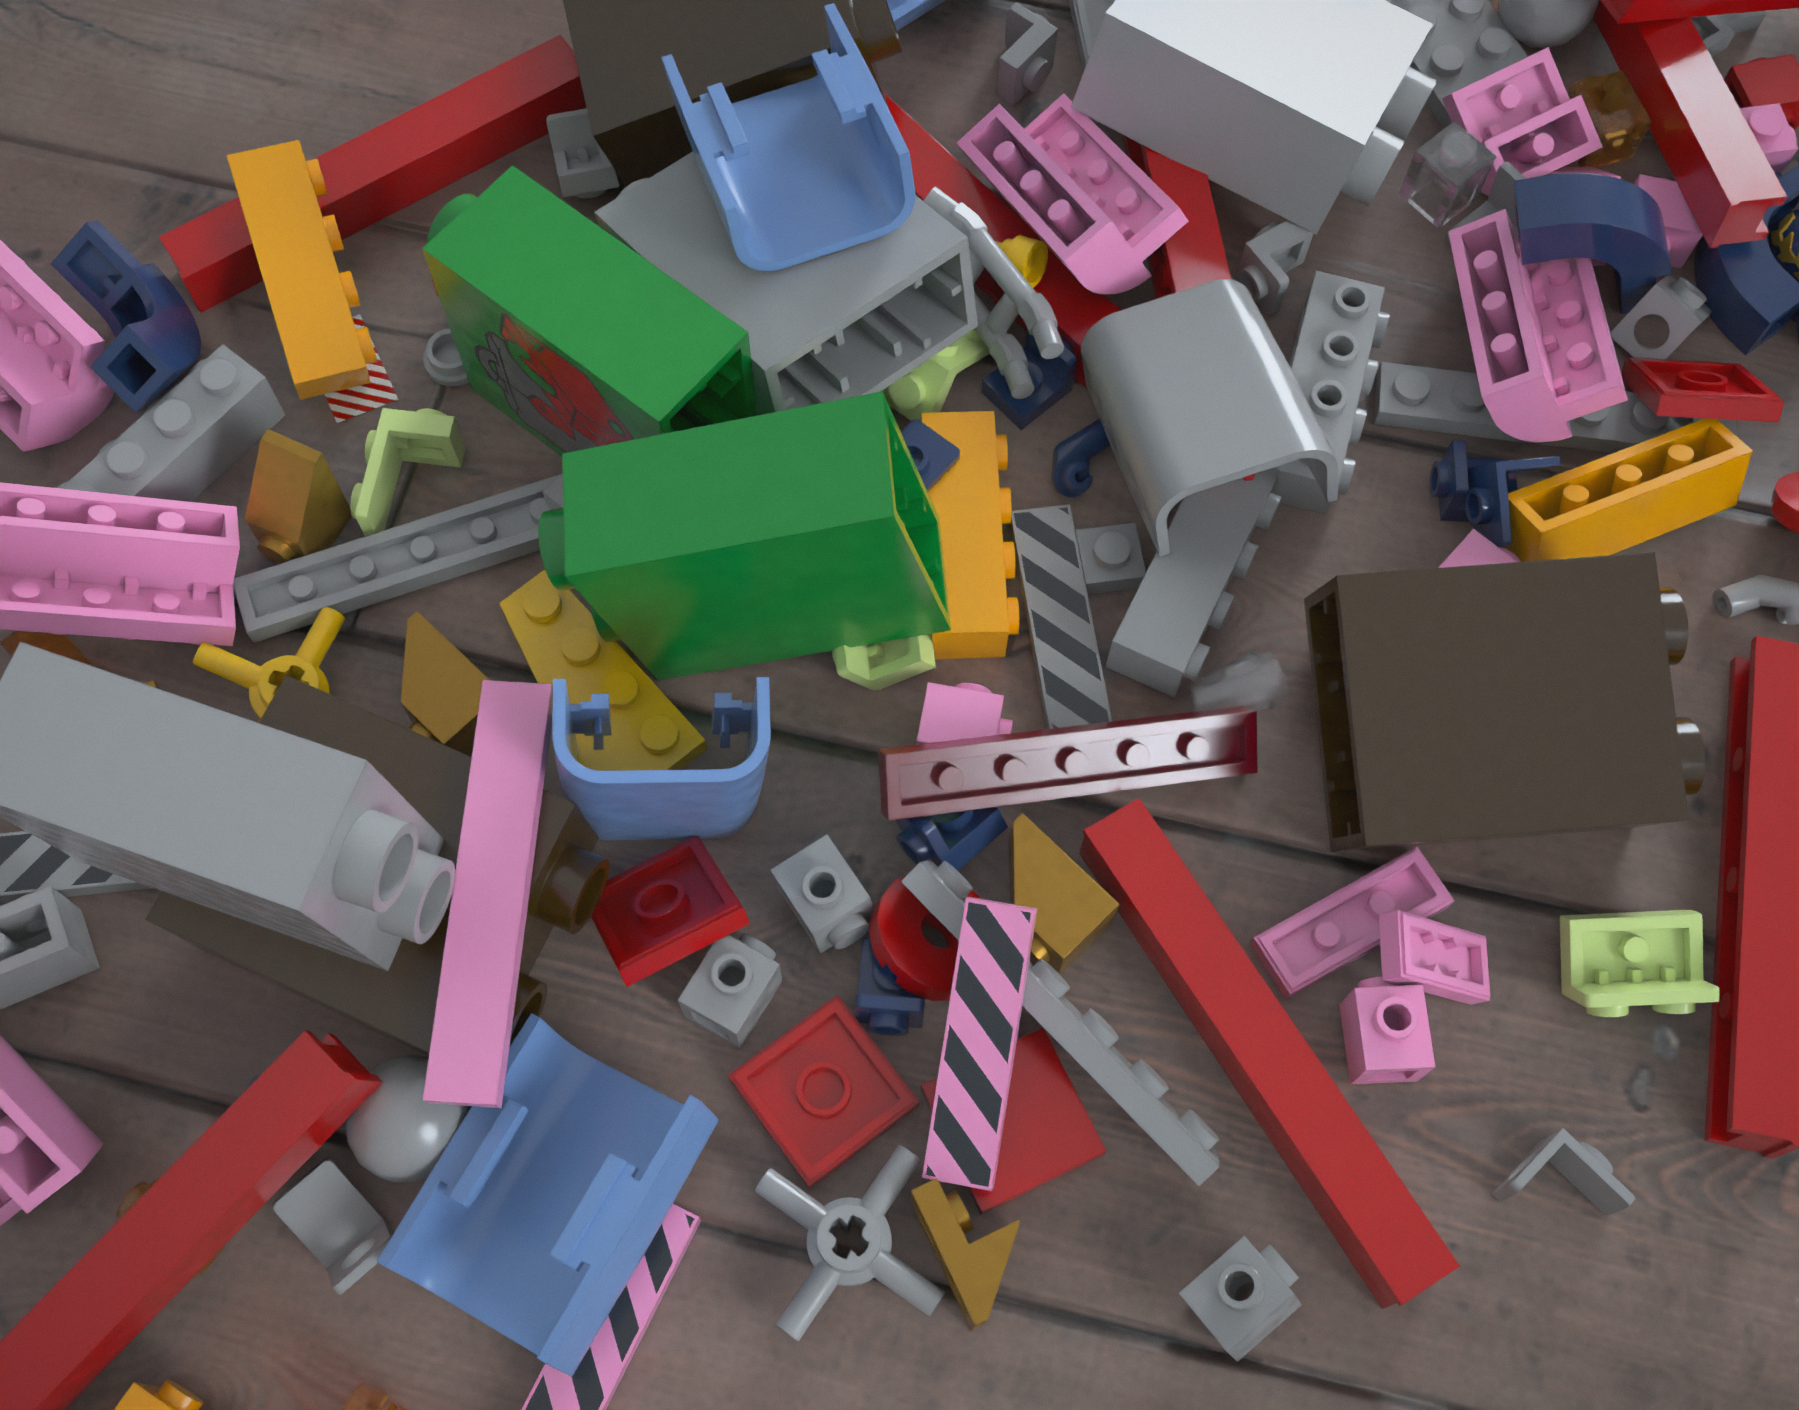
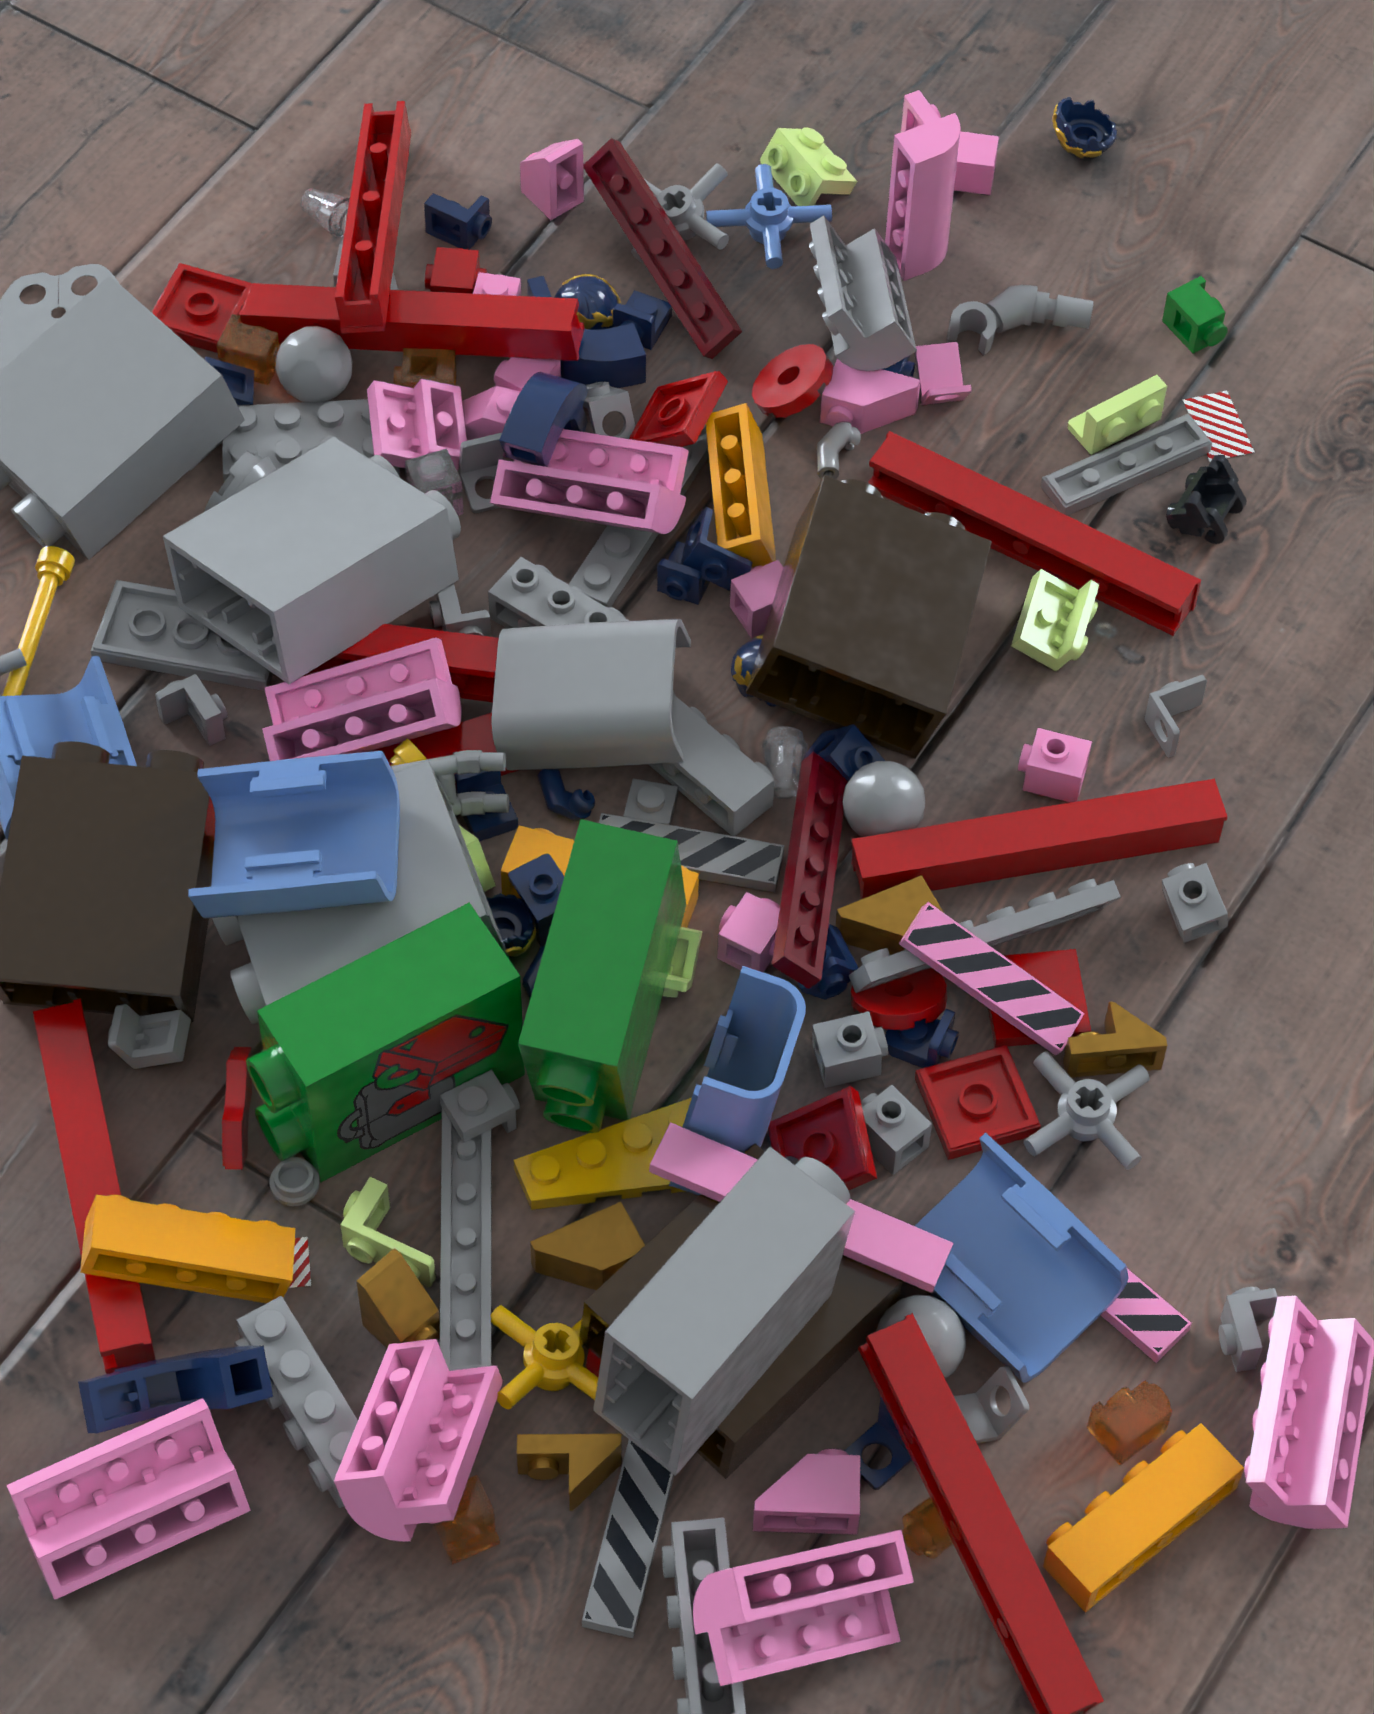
camera: 70 degrees left, 10 degrees down
(170, 1060) = (813, 1496): none -> bright pink slope
(1222, 823) = (883, 799): none -> light grey piece
(1280, 768) = (847, 751): none -> dark blue bracket
(1347, 922) = (970, 762): bright pink tile -> none
(1434, 955) = (1017, 720): bright pink plate -> none

